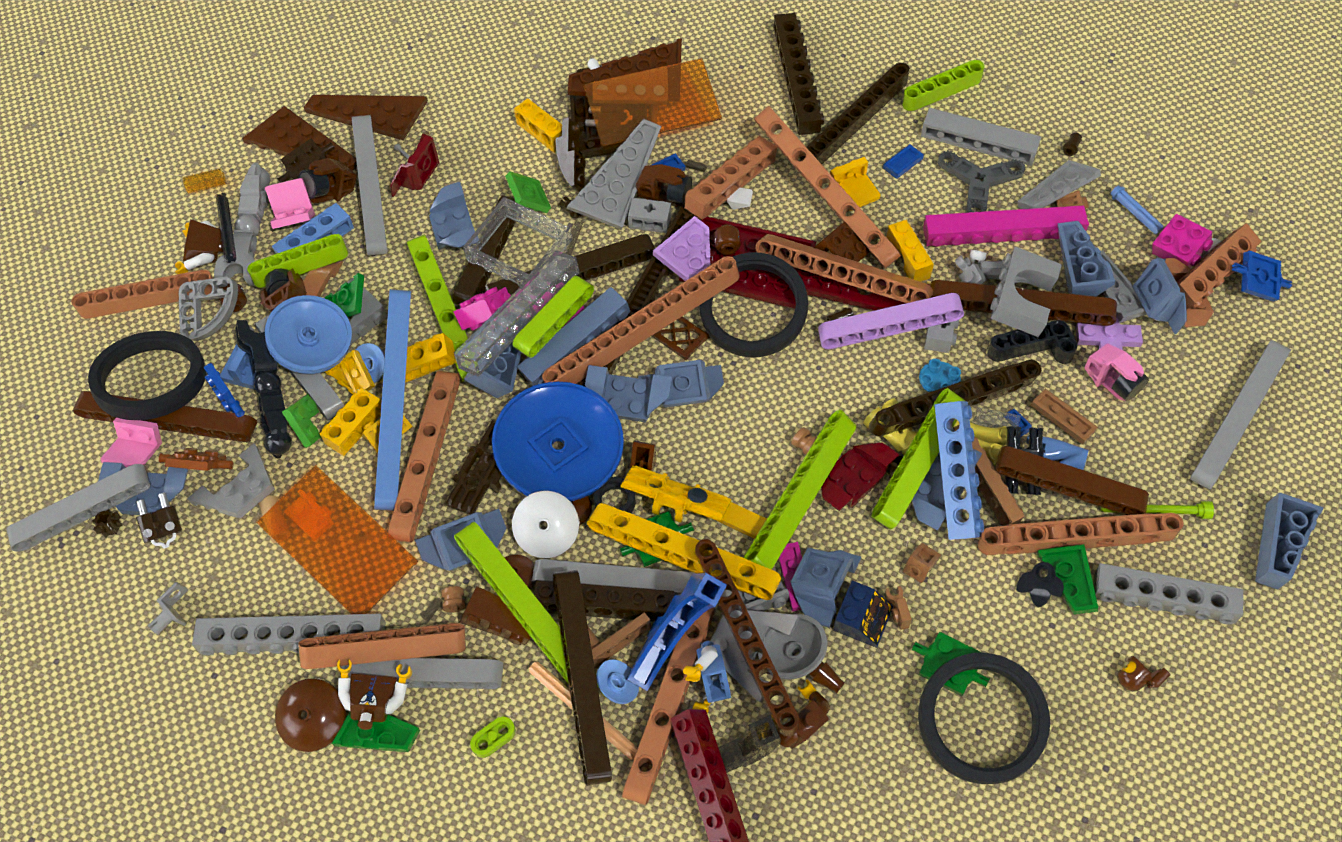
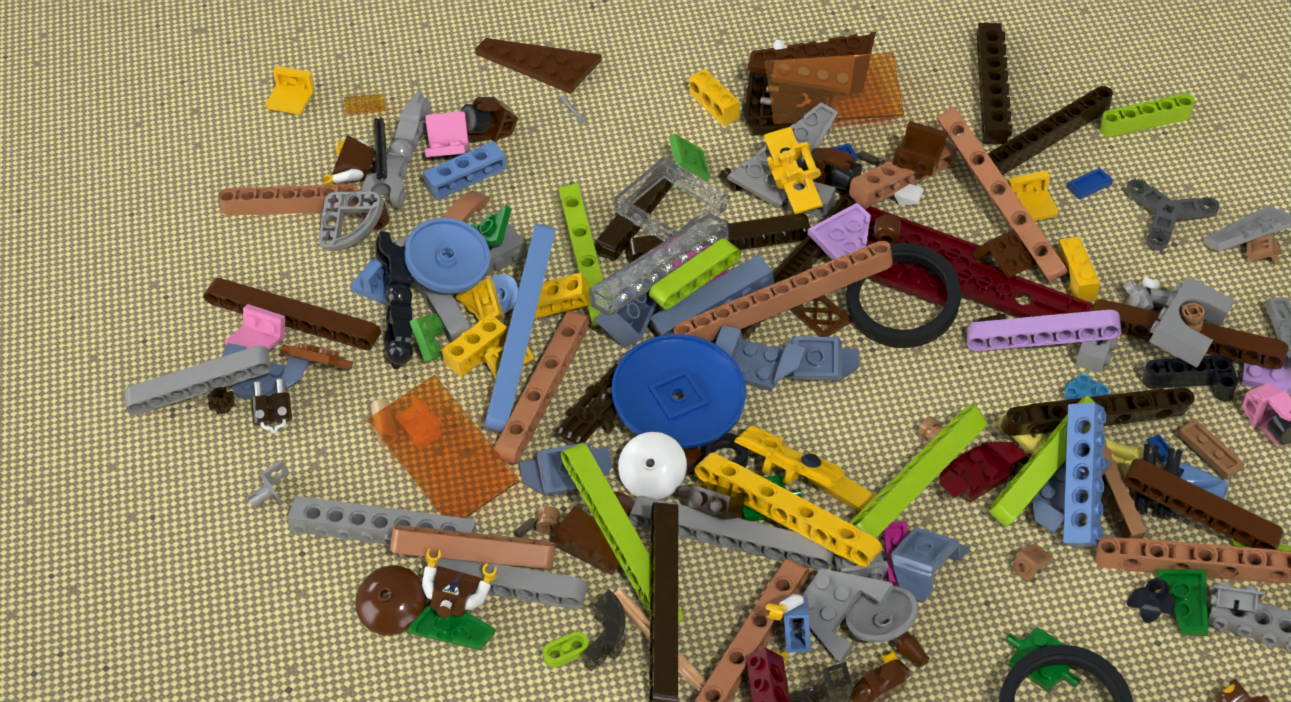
camera: 10 degrees right, 10 degrees down
(130, 177) = (291, 90): none -> yellow bracket
(156, 406) = (288, 299): black tyre -> none
(222, 391) = (353, 296): blue plate -> none
(242, 492) = (356, 392): light grey wing -> none
(280, 286) = (423, 208): reddish brown piece -> none
(287, 131) = (462, 77): reddish brown wing -> none
(301, 258) = (447, 188): lime beam -> none
(302, 157) = (466, 94): dark brown plate -> none
(369, 186) = (529, 130): light grey beam -> none
(418, 168) = (582, 120): dark red piece -> none
(451, 217) = (606, 171): sand blue piece -> none
(480, 308) = (617, 257): dark pink brick -> none
(538, 711) = (611, 615): none -> clear smoke arch
(570, 161) = (737, 128): dark brown slope -> none
(576, 236) = (731, 204): dark tan piece -> none
(610, 552) = (713, 499): none -> dark brown brick
(611, 600) = (713, 548): dark brown brick -> none
(613, 683) = (699, 619): light blue dish -> none
(619, 640) = (708, 582): medium nougat piece -> none
(623, 196) = (786, 172): none -> yellow piece
(643, 455) = (763, 417): reddish brown slope -> none
(697, 597) = (764, 570): blue arch -> none
(744, 152) = (920, 148): none -> reddish brown panel
(750, 645) = (836, 597): reddish brown beam -> none
(853, 269) = (1013, 274): nougat beam -> none
(863, 614) = (960, 599): dark blue slope -> none
(900, 612) = (1000, 603): medium nougat plate -> none
(980, 136) = (1177, 170): light grey brick -> none
(995, 418) = (1137, 439): clear tile -> none
(999, 225) = (1186, 259): dark pink brick -> none
(1027, 287) = (1193, 316): none -> medium nougat wheel
(1071, 147) = (1274, 193): dark brown pin -> none
(1083, 265) = (1261, 303): sand blue wedge -> none
(1131, 573) = (1247, 597): none -> light grey hinge

